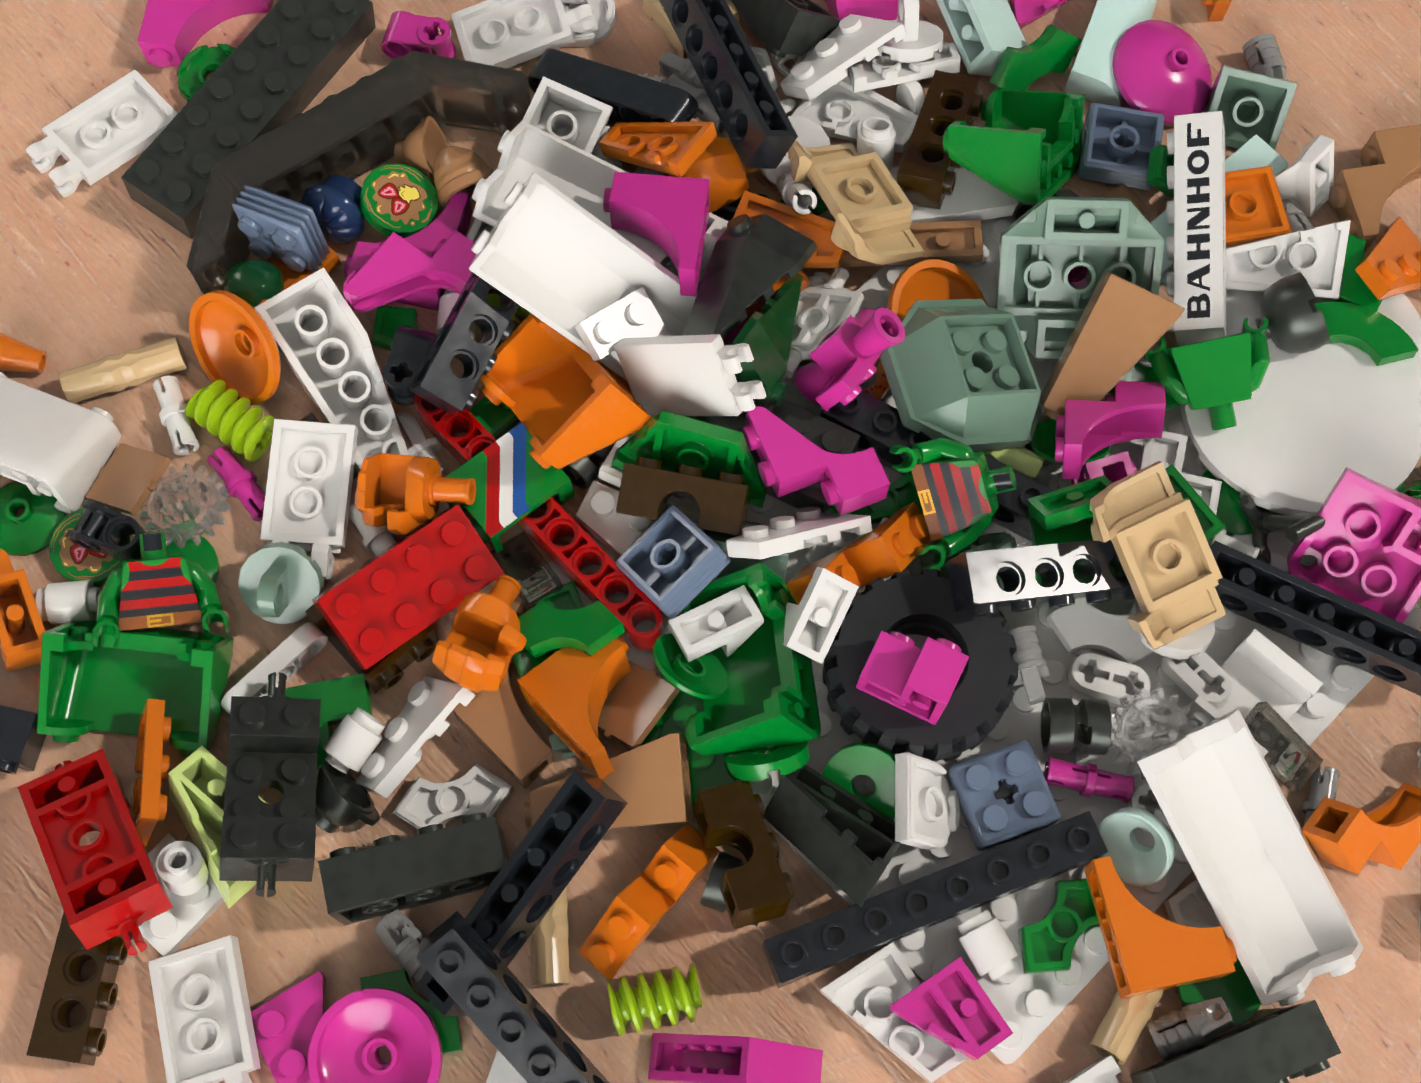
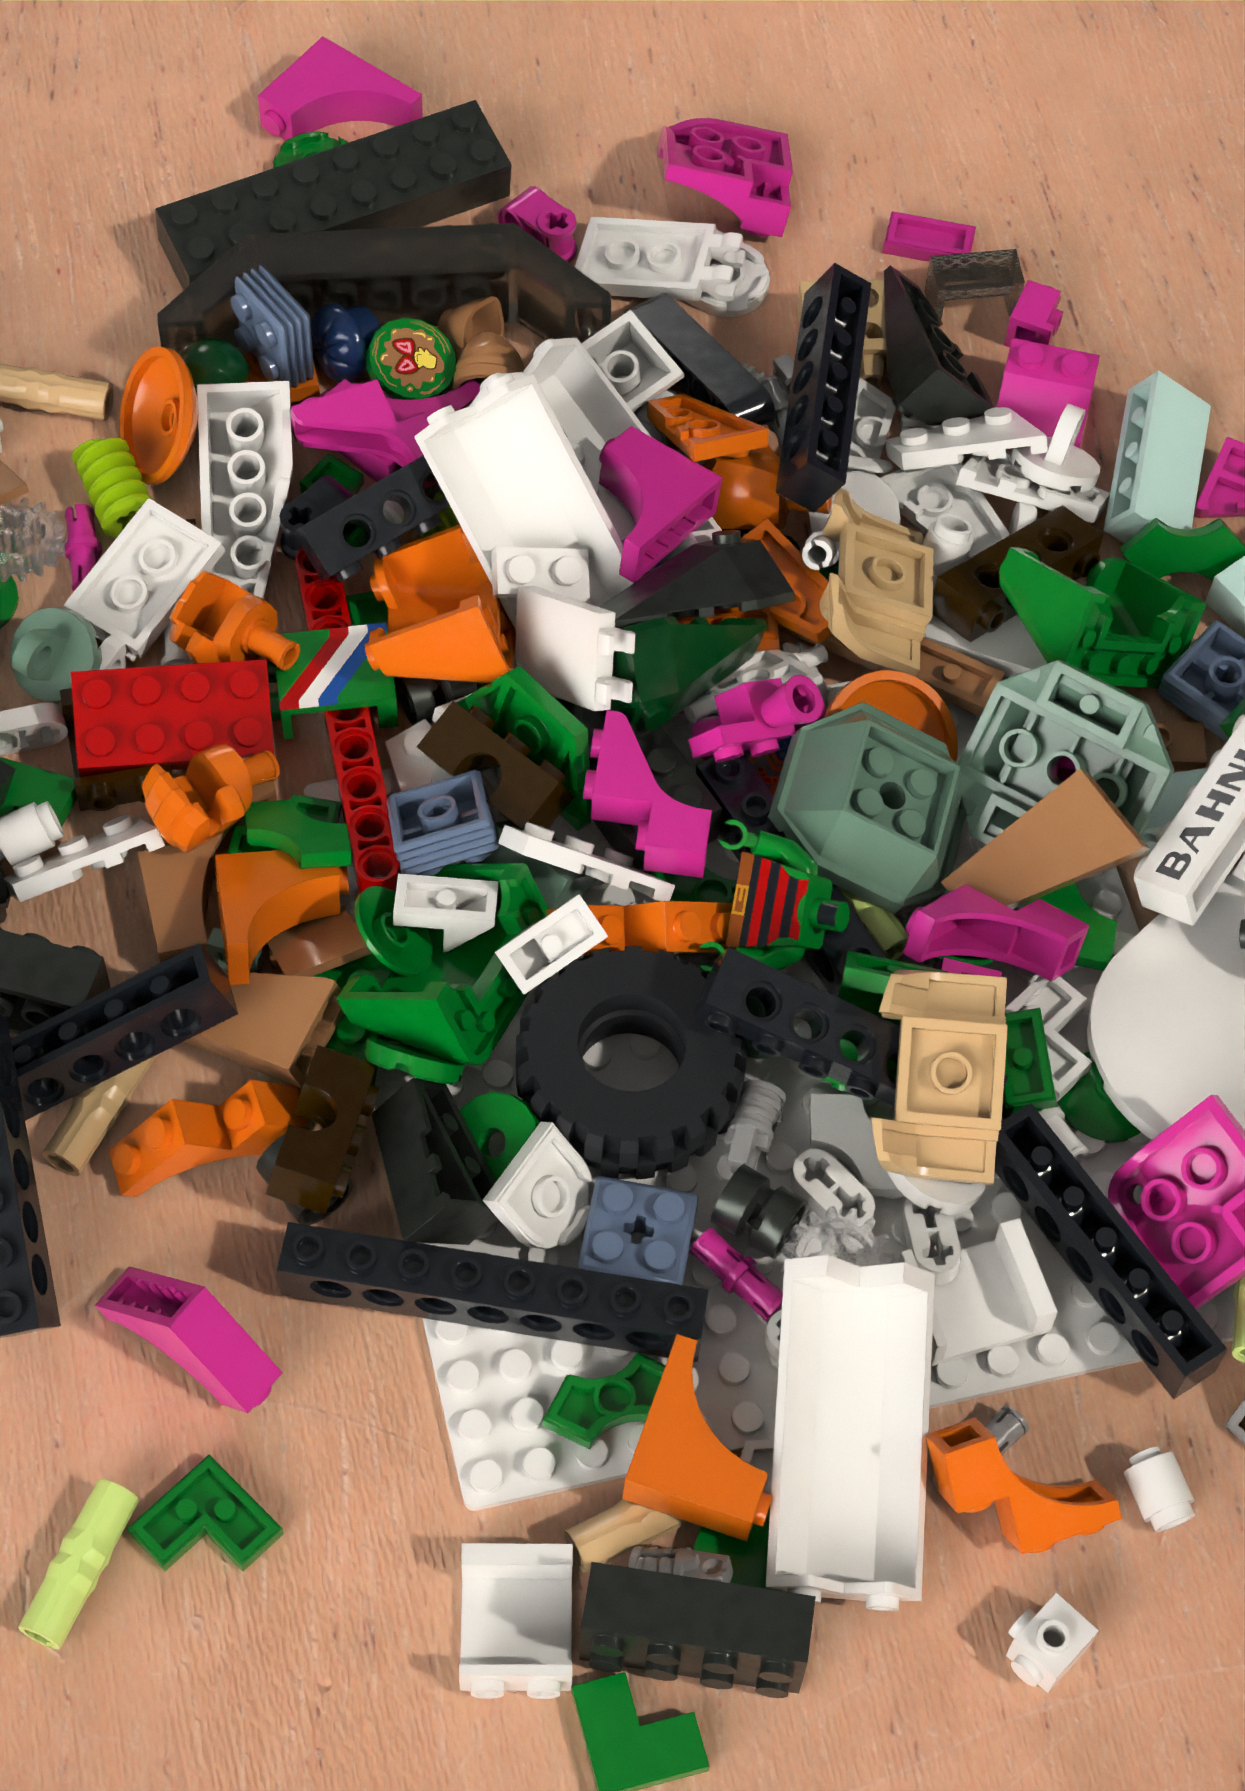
camera: 30 degrees right, 10 degrees down
(102, 133) = (167, 164): white tile -> none
(173, 415) = (59, 456): white pin -> none
(421, 445) = (282, 603): white piece -> none
(441, 803) = (117, 944): white tile -> none
(527, 565) = (302, 767): clear smoke tile -> none
(655, 999) = (147, 1233): lime piece -> none
(866, 996) = (385, 1386): white wing -> none
(911, 676) = (601, 1042): dark pink brick -> none
(954, 1011) = (440, 1410): dark pink wing -> none
(987, 945) = (518, 1368): white brick -> none
(1131, 860) = (729, 1357): light aqua piece -> none
(1214, 371) = (1153, 939): green torso -> none
(1262, 523) = (1113, 1130): pearl dark grey piece -> none
(1287, 753) = (974, 1359): clear smoke tile -> none

